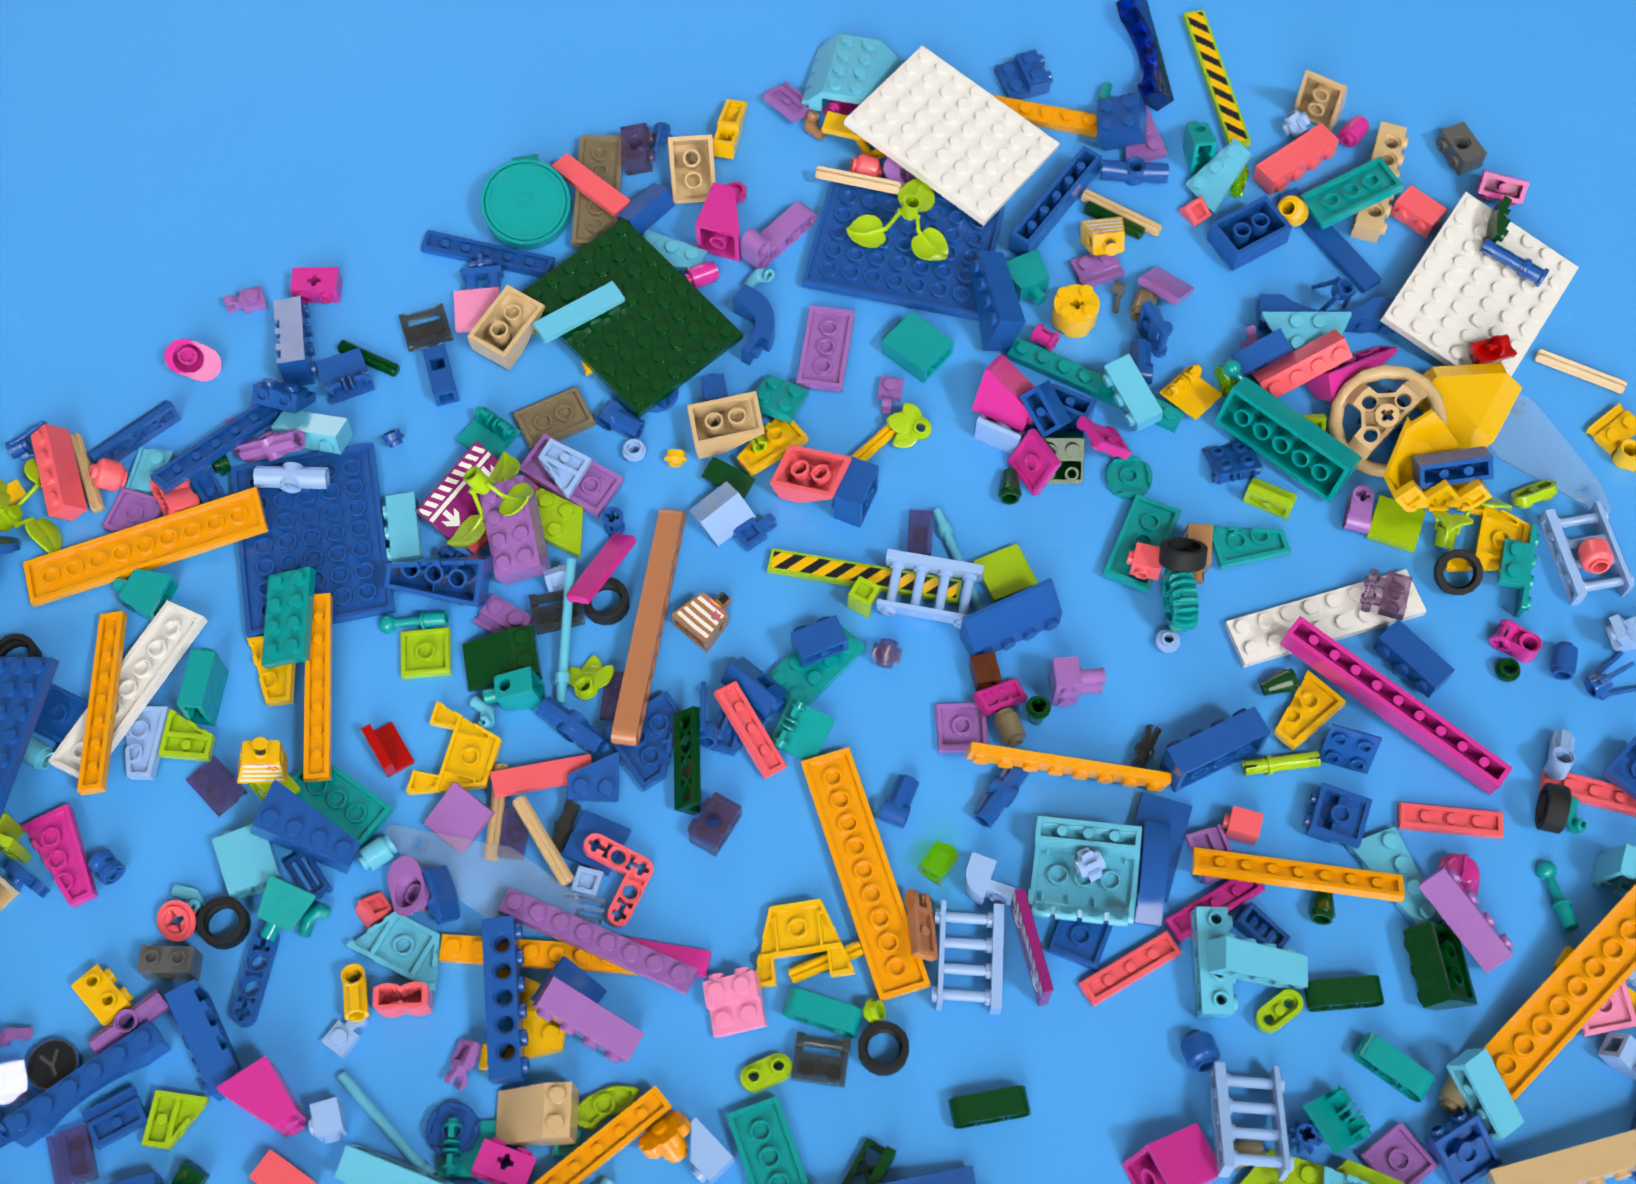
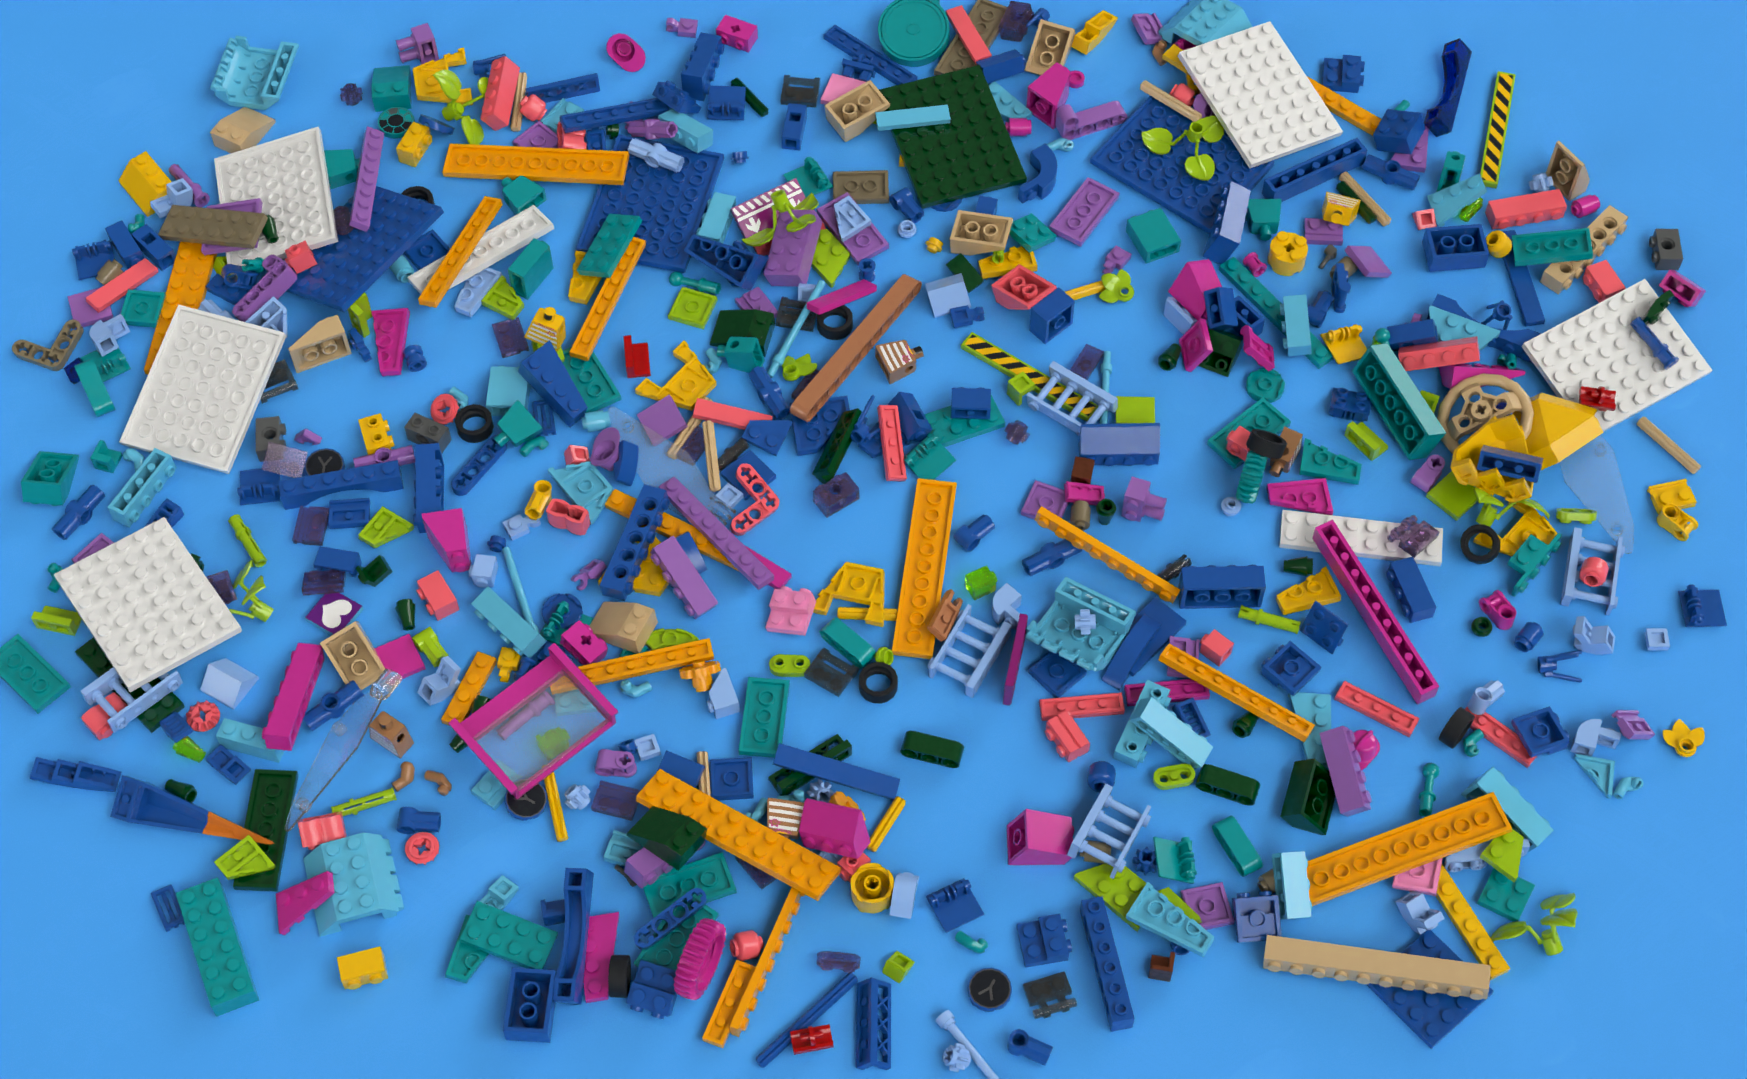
camera: 25 degrees right, 5 degrees down
(327, 1074) = (496, 543): none -> blue plate
(1135, 1017) = (1067, 736): none -> coral brick
(1239, 594) = (1301, 495): none -> dark pink wing
(1369, 341) = (1509, 360): none -> teal arm

